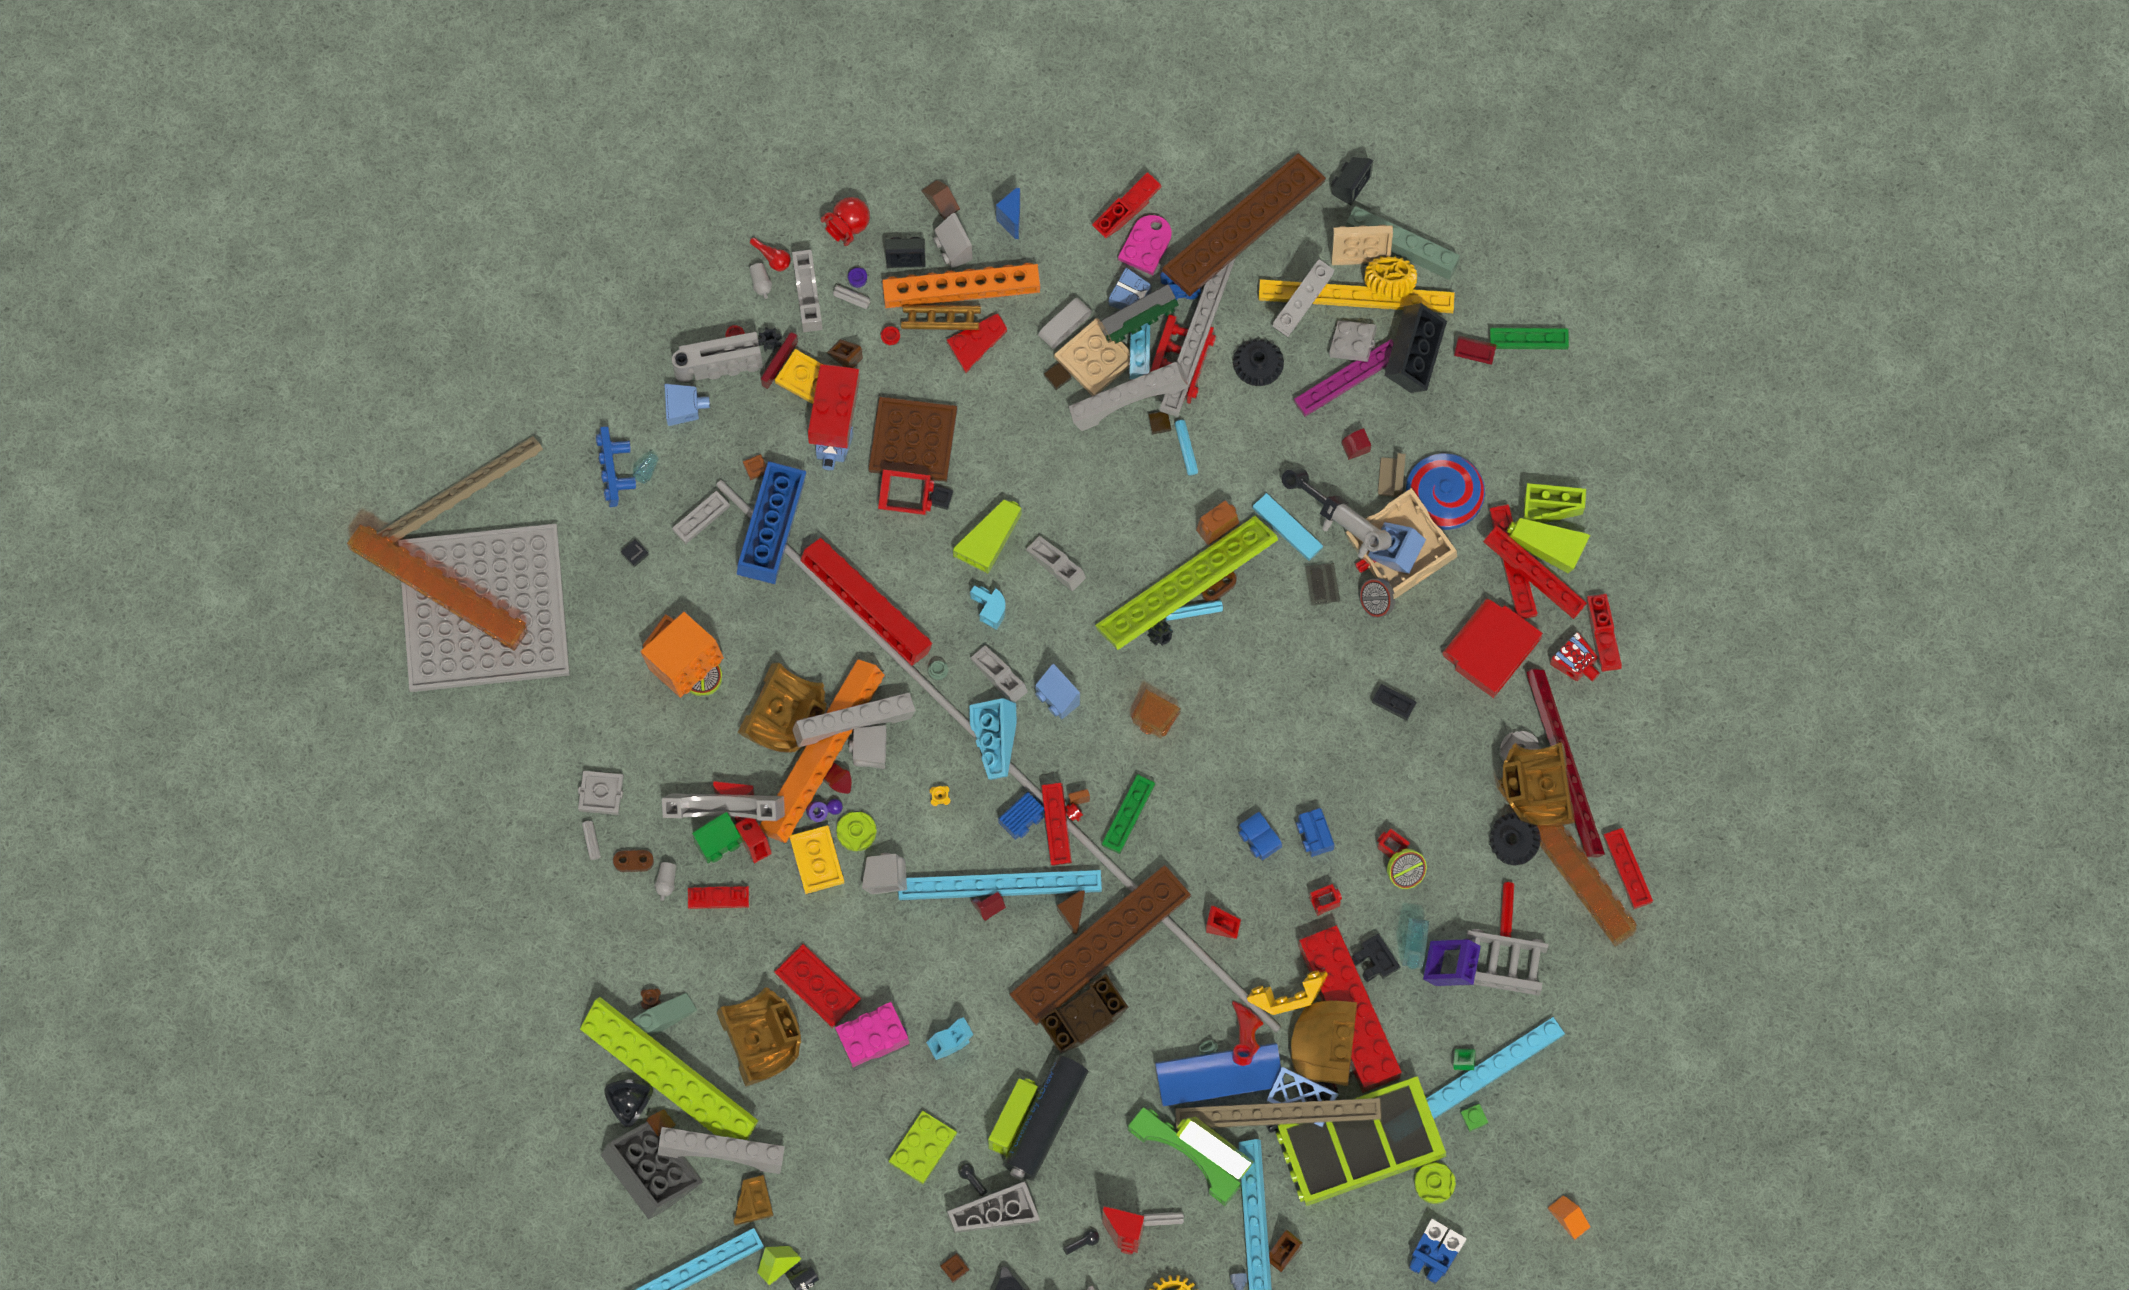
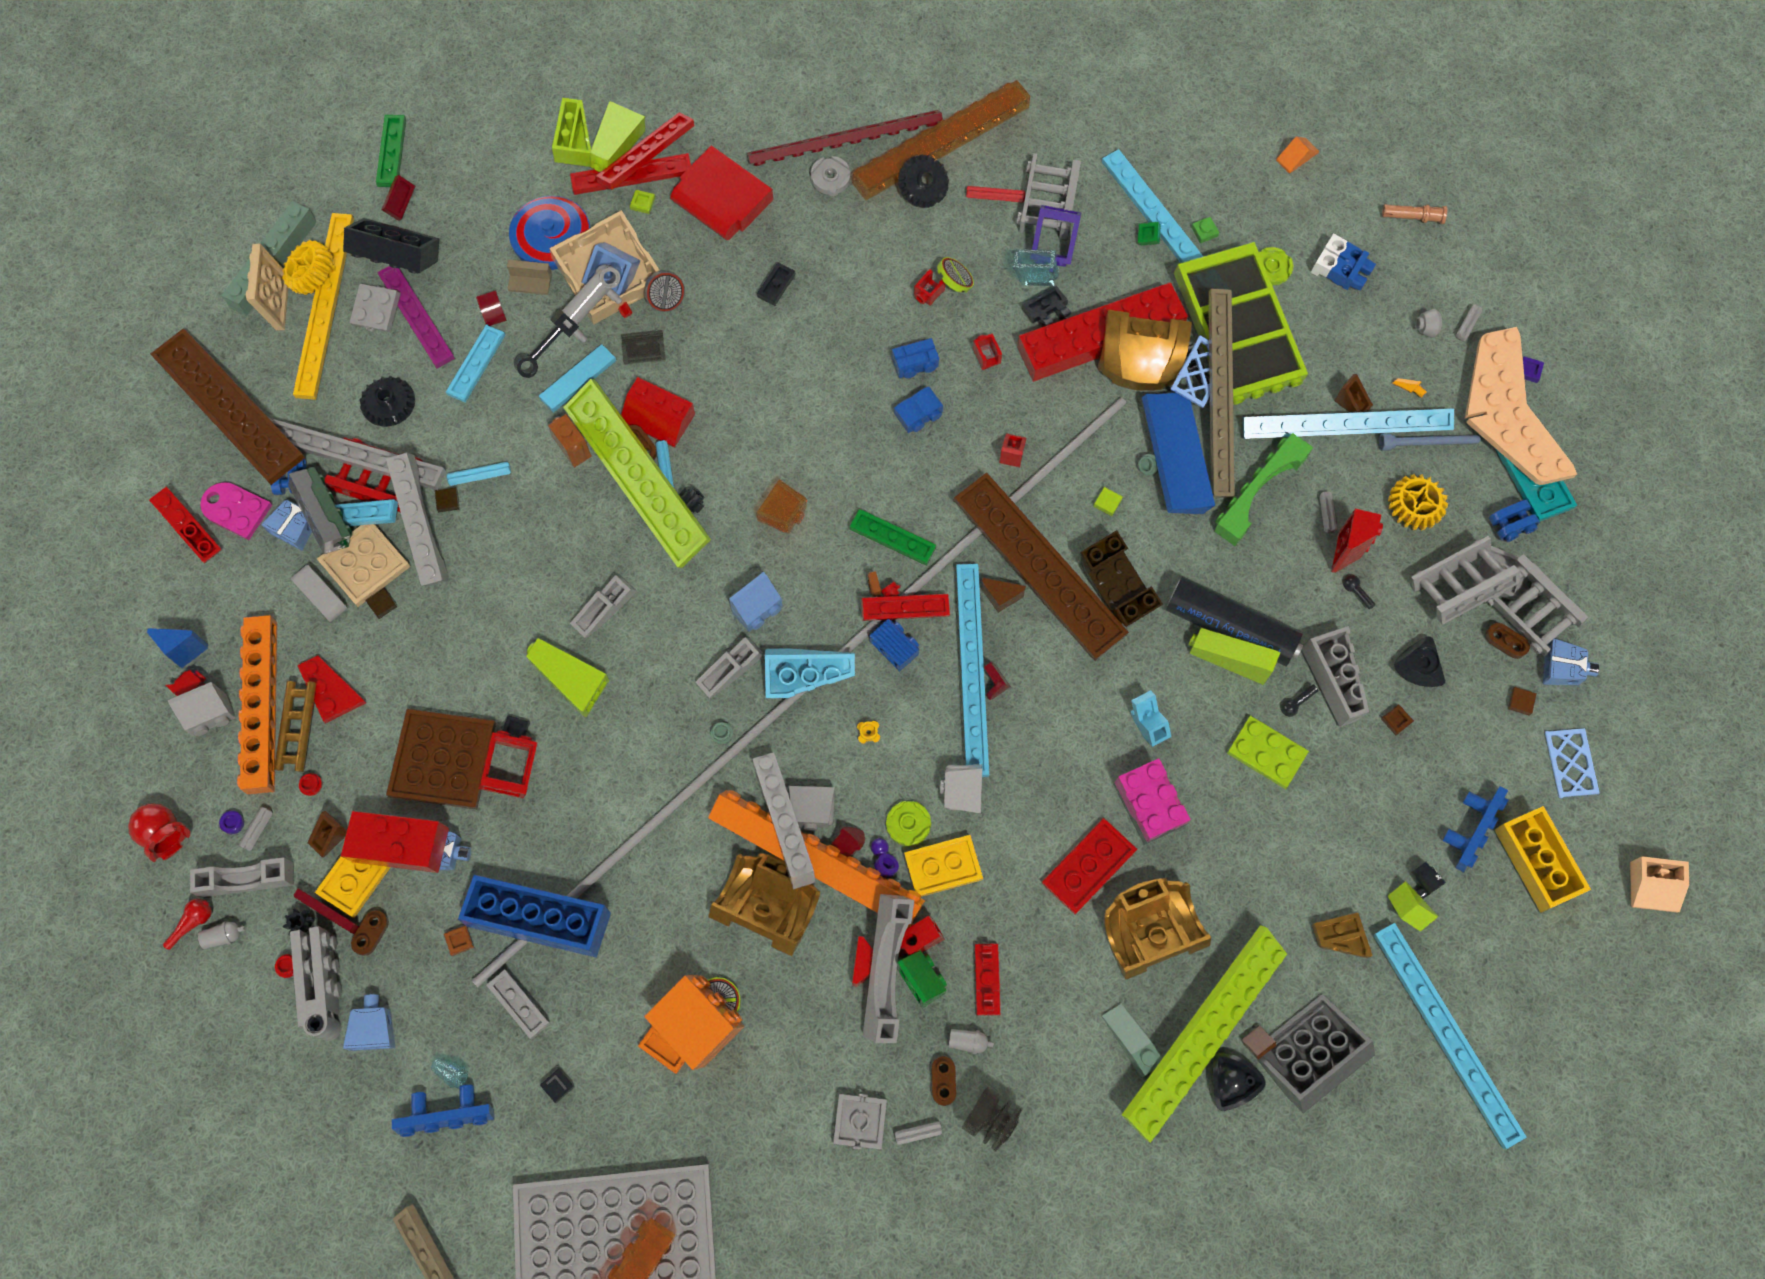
camera: 90 degrees left, 0 degrees up
(598, 897) = (992, 1118): none -> clear smoke wheel
(646, 994) = (1115, 1051): reddish brown plate -> none
(687, 1143) = (1293, 971): light grey arch -> none
(761, 397) = (370, 933): none -> reddish brown plate
(866, 601) = (636, 810): red brick -> none
(905, 252) = (208, 764): black slope -> none
(941, 199) = (145, 726): reddish brown slope -> none
(976, 228) = (187, 682): none -> red window
(994, 606) = (651, 670): medium azure brick -> none
(1170, 1012) = (1108, 501): none -> lime tile
(1214, 1146) = (1258, 454): slope -> none
(1248, 1025) = (1123, 423): red piece -> none
(1250, 599) = (657, 412): none -> red slope
(1265, 999) = (1099, 378): yellow slope -> none
(1300, 435) = (475, 363): none -> medium azure tile
(1303, 298) = (322, 342): light grey fence -> none
(1352, 179) = (189, 300): black slope -> none
(1483, 574) = (642, 201): none -> lime tile
(1538, 785) = (874, 147): pearl gold piece -> none
(1576, 659) = (737, 122): torso -> none
(1603, 632) = (707, 100): red slope -> none
(1628, 868) = (952, 90): red plate -> none

